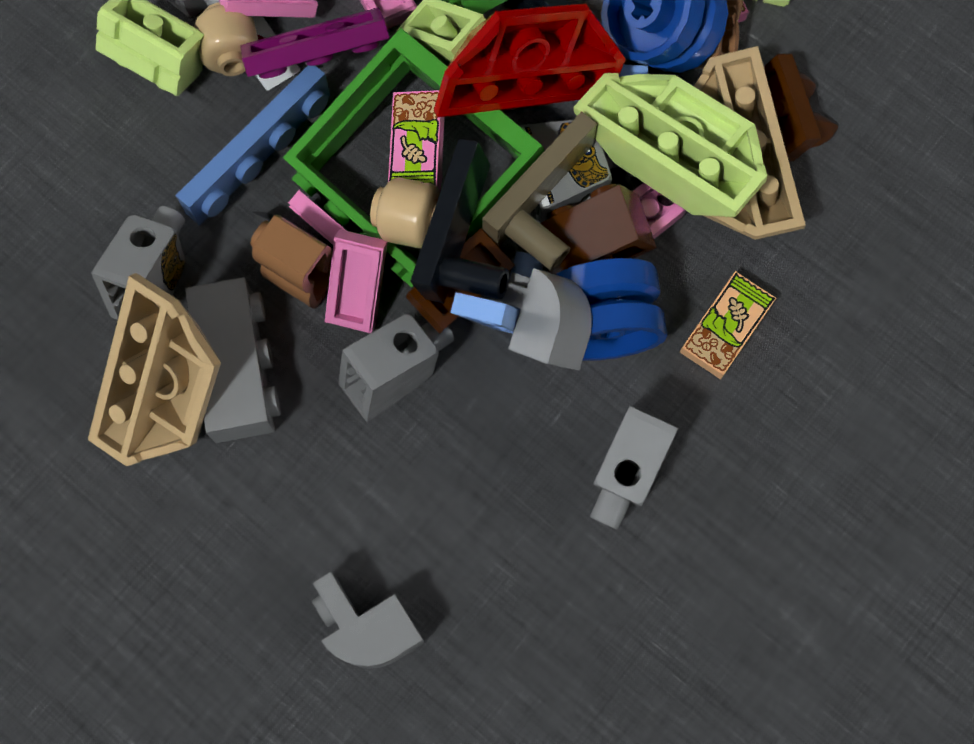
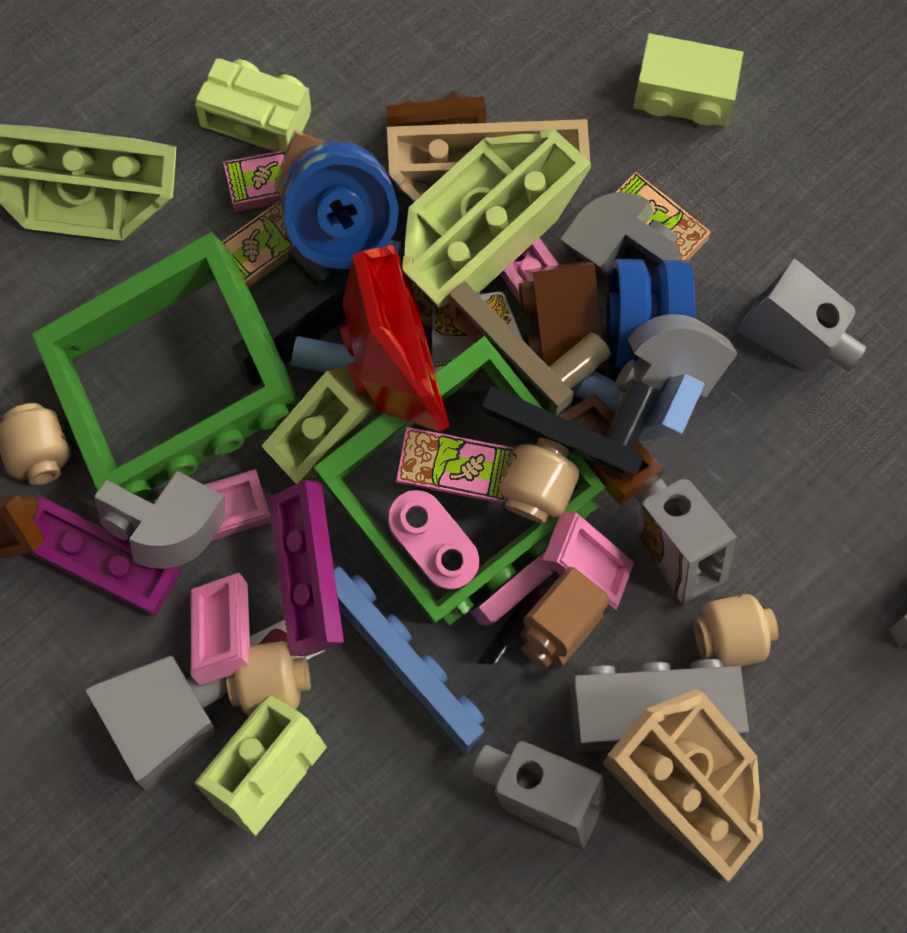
camera: 85 degrees left, 5 degrees down
(310, 424) = (735, 631): none -> tan head
(353, 139) = (433, 539): none -> bright pink plate
(703, 278) = (612, 225): none -> light grey brick
(891, 337) = (688, 80): none -> yellowish green brick

